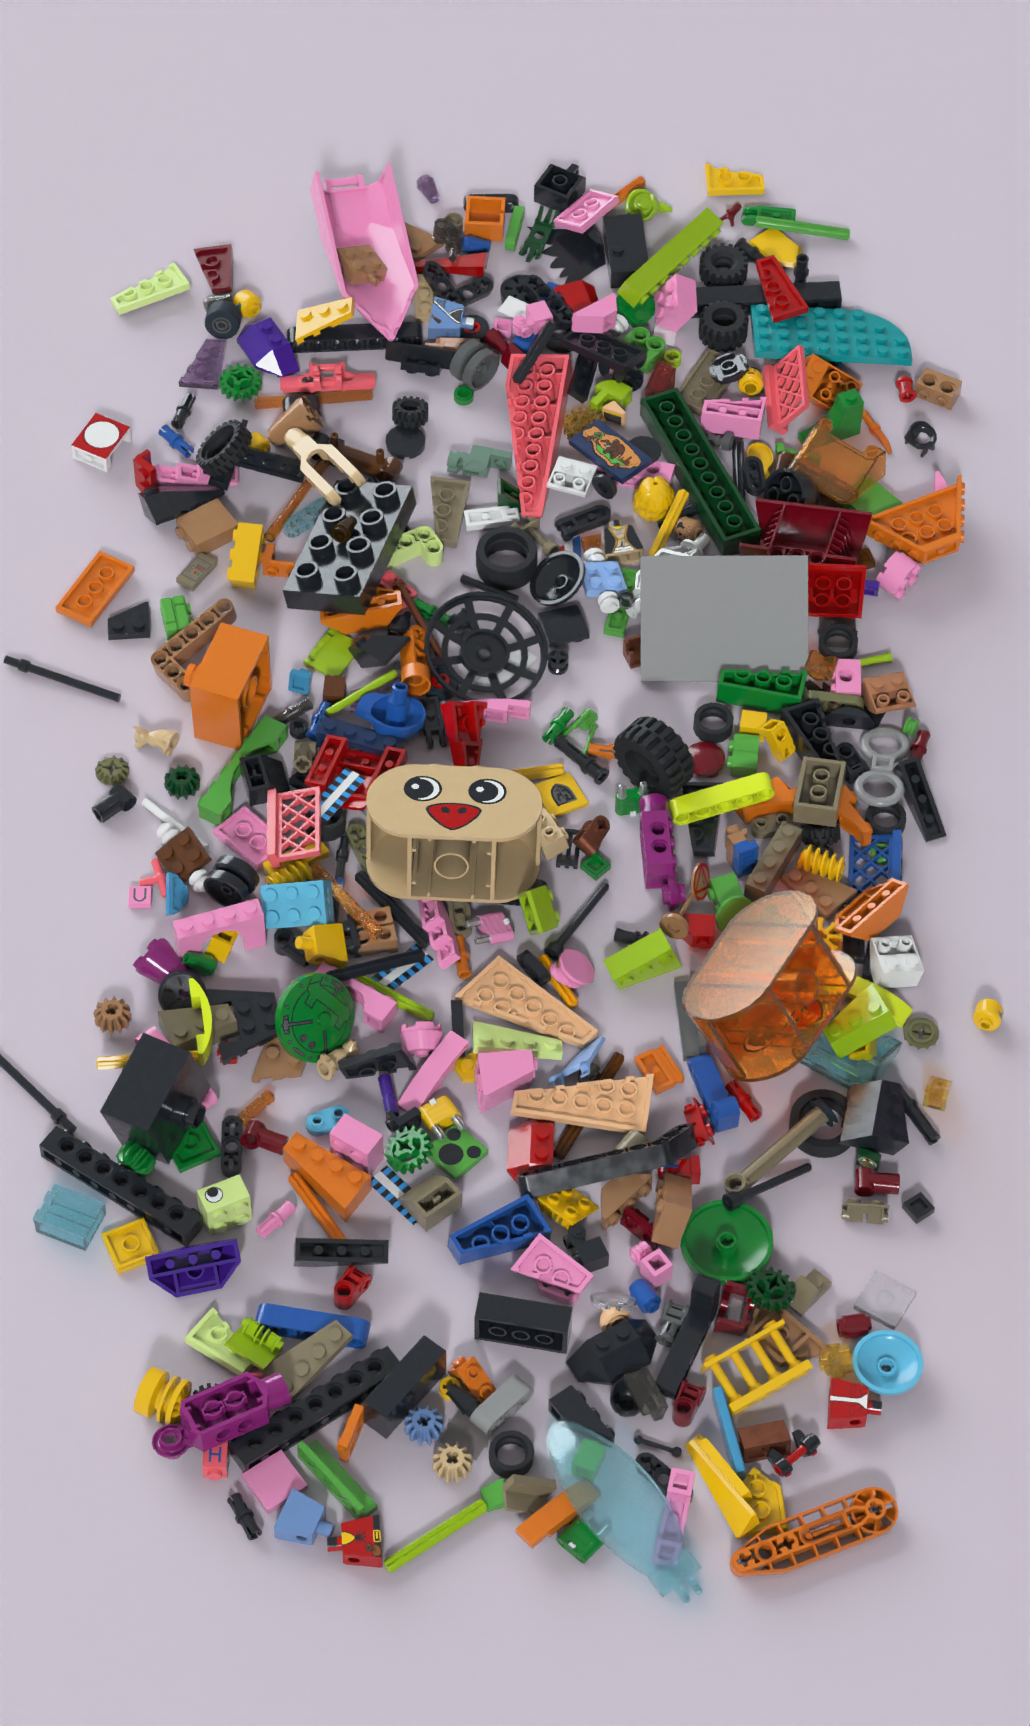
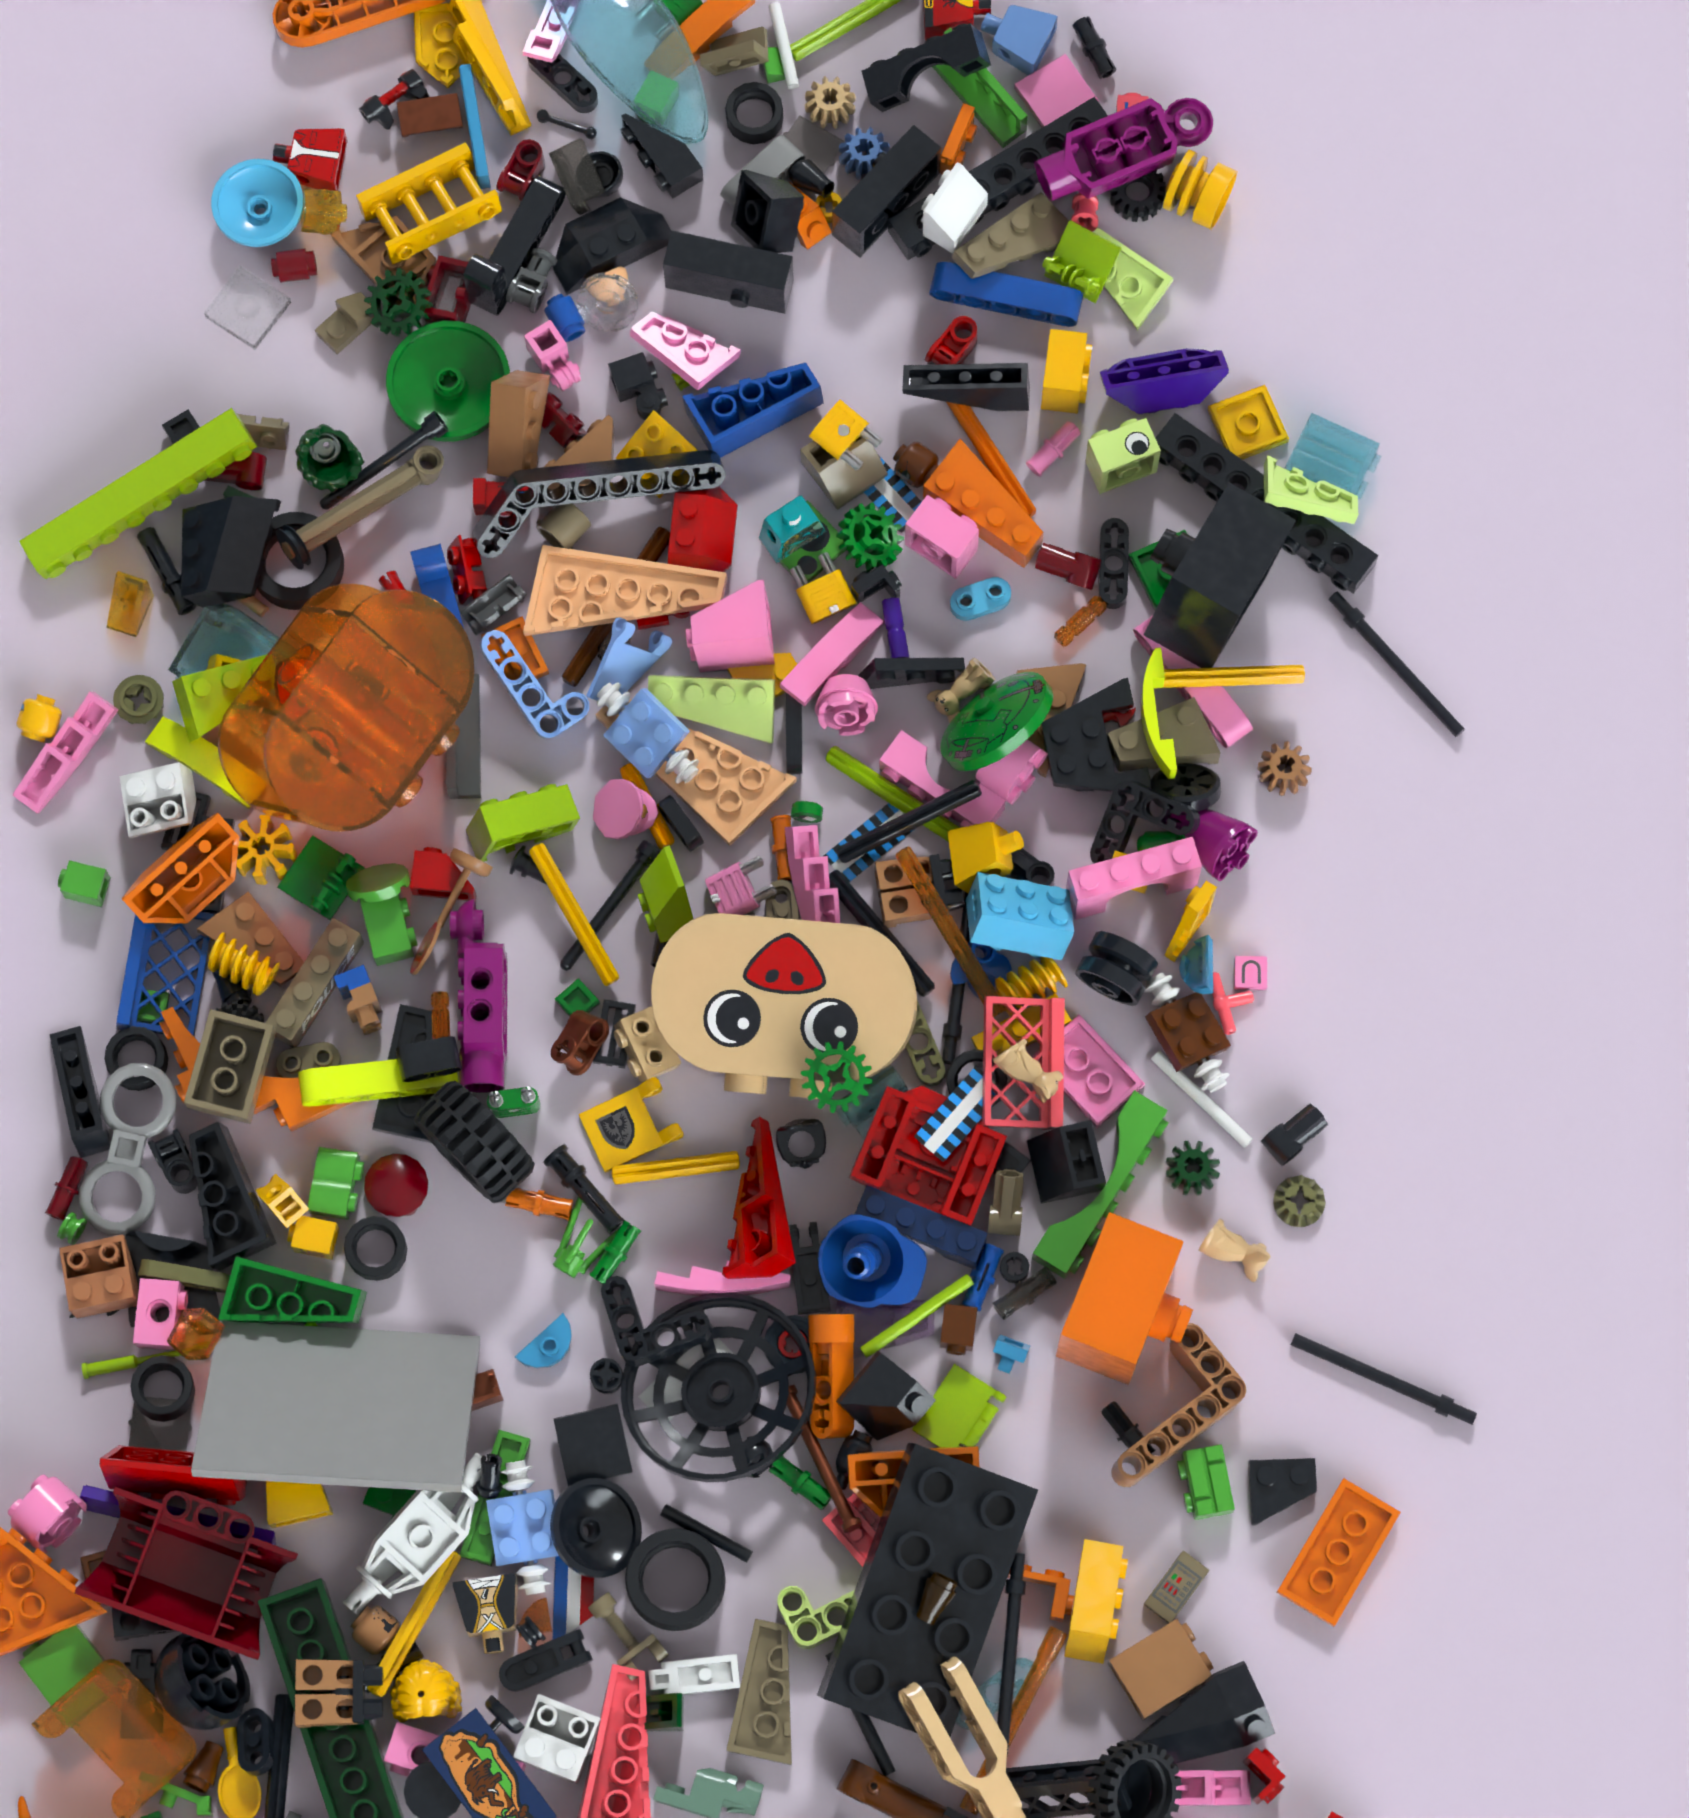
camera: 175 degrees left, 20 degrees up
(90, 1177) = (1297, 492): none -> yellowish green wing
(177, 906) = (1195, 912): none -> yellow wing
(192, 962) = (1139, 808): none -> black beam
(266, 1261) = (1066, 371): none -> yellow brick
(295, 811) = (1022, 1067): none -> tan animal
(296, 550) = (1015, 1589): none -> black bar
(351, 1480) = (891, 80): none -> black arch
(353, 1359) = (953, 208): none -> white slope
(376, 1203) = (915, 463): none -> reddish brown head
(416, 758) = (823, 1069): none -> green gear
(432, 1200) = (840, 430): none -> yellow piece
(446, 977) = (807, 812): none -> green tile
(464, 1145) = (792, 528): none -> teal torso
(491, 1505) = (783, 45): none -> white bar
(495, 1357) = (767, 212): none -> black slope
(535, 676) = (647, 1338): none -> black beam
(560, 1010) = (646, 733): none -> light blue plate
(593, 528) = (530, 1632): none -> black bush
(597, 678) = (548, 1346): none -> dark azure plate
(602, 906) = (574, 914): none -> yellow axle
(653, 1040) = (528, 681): none -> light blue beam
(684, 1092) = (493, 604): none -> dark grey hinge
(685, 849) = (440, 1014): none -> clear orange axle
(689, 801) = (428, 1059): none -> black beam
(706, 480) = (346, 1694): none -> medium nougat hips
(808, 1181) = (329, 465): none -> dark green hair
(938, 917) = (84, 883): none -> bright green brick
(941, 1152) = (138, 494): none -> lime brick
(966, 998) = (65, 752): none -> bright pink slope

